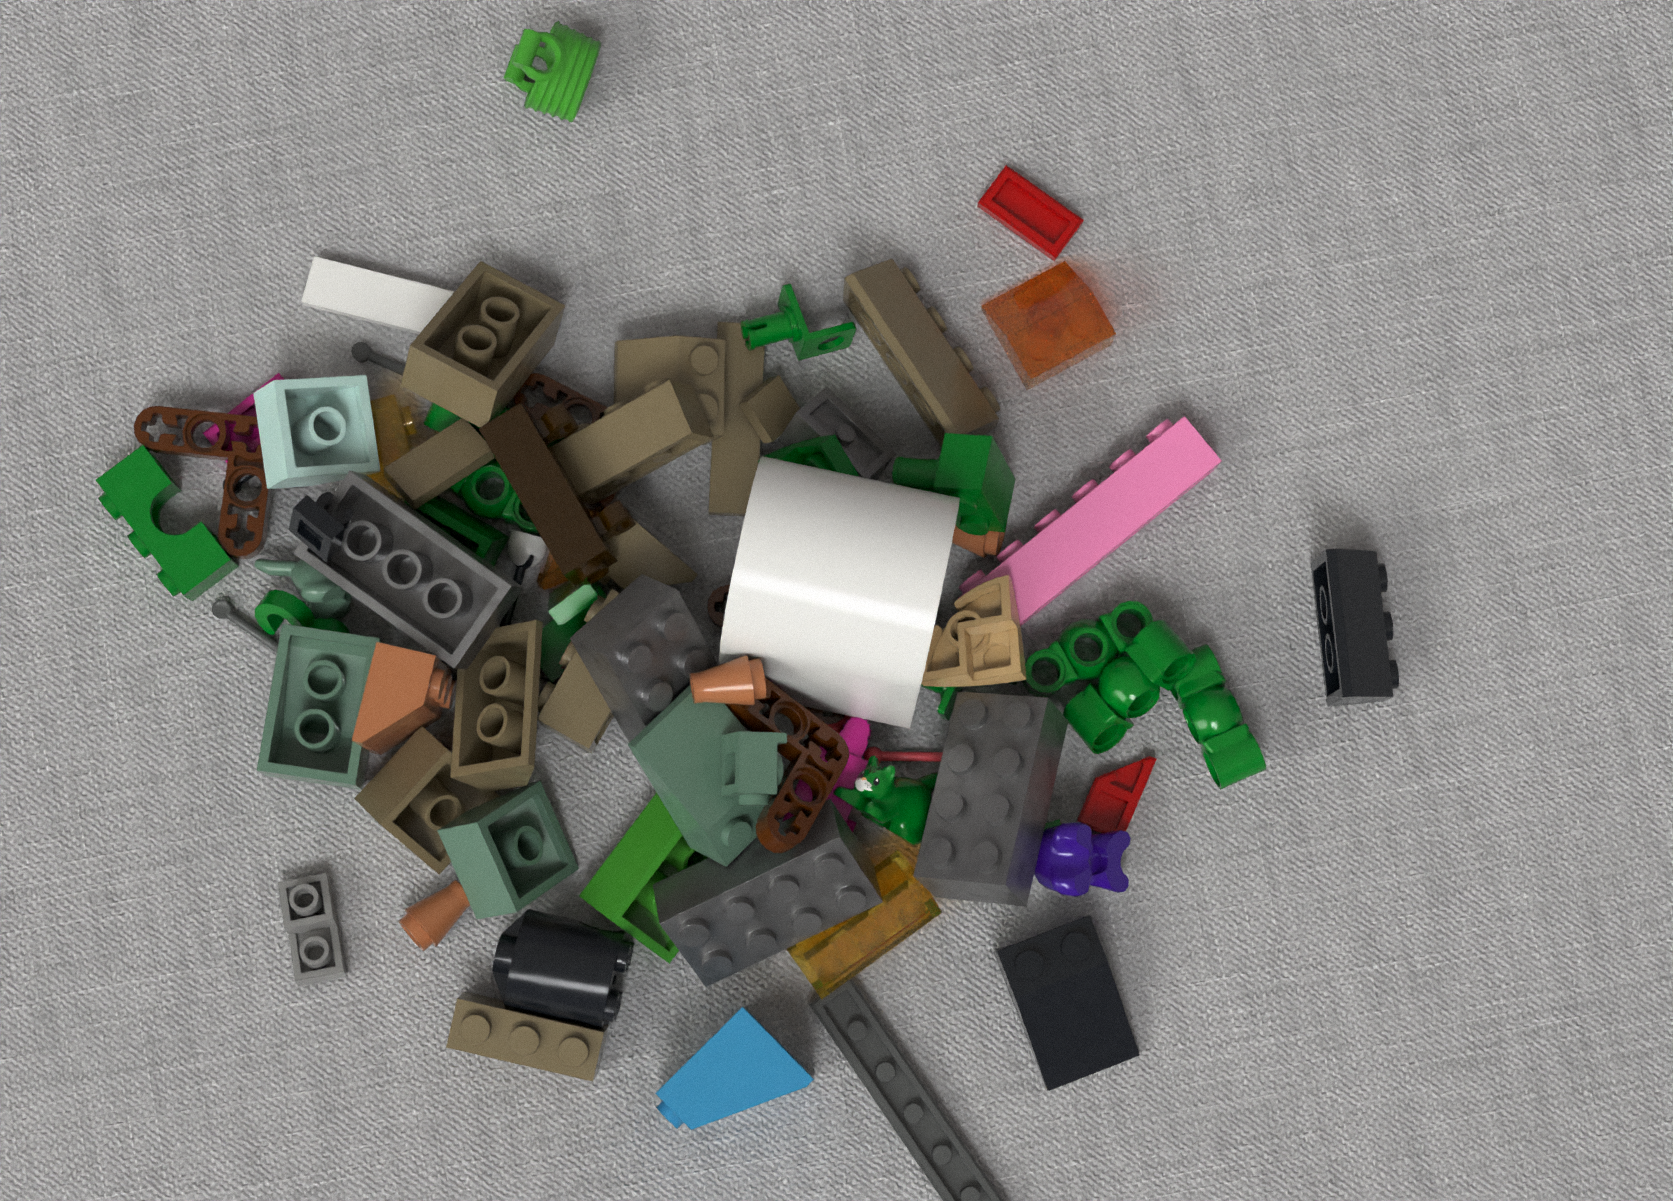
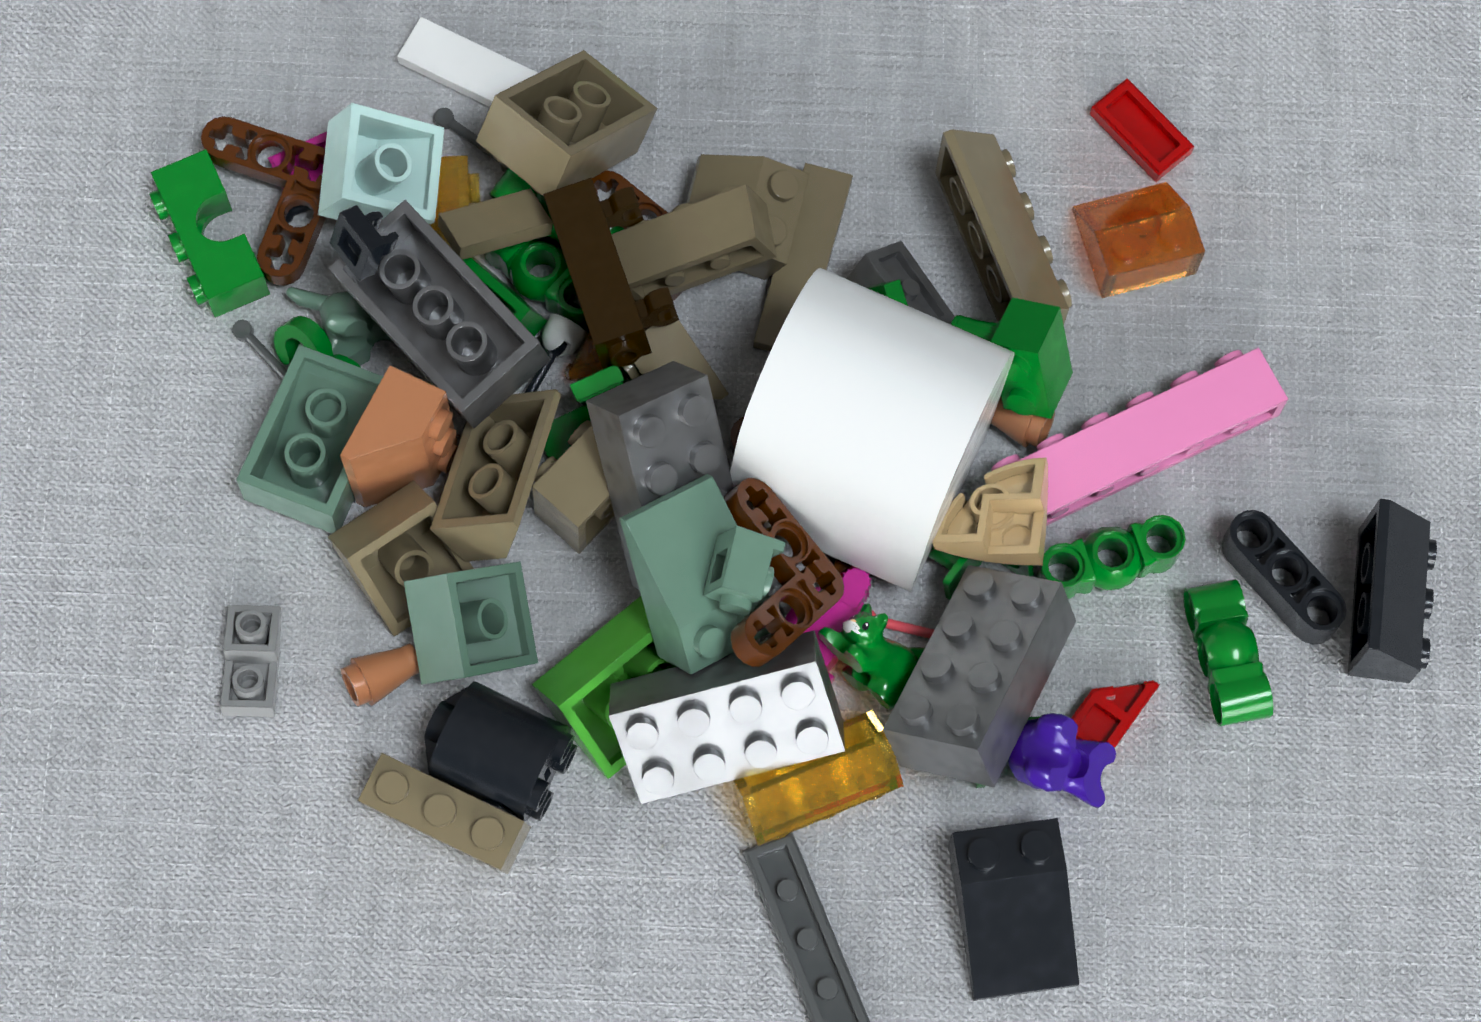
camera: 15 degrees right, 10 degrees down
(730, 1074) = (647, 897): dark azure slope -> none
(732, 682) = (738, 481): nougat cone -> none
(770, 408) = (838, 250): dark tan tile -> none
(791, 326) = (879, 180): green bracket -> none
(1129, 686) = (1147, 600): green piece -> none
(1274, 632) = (1278, 552): none -> black beam

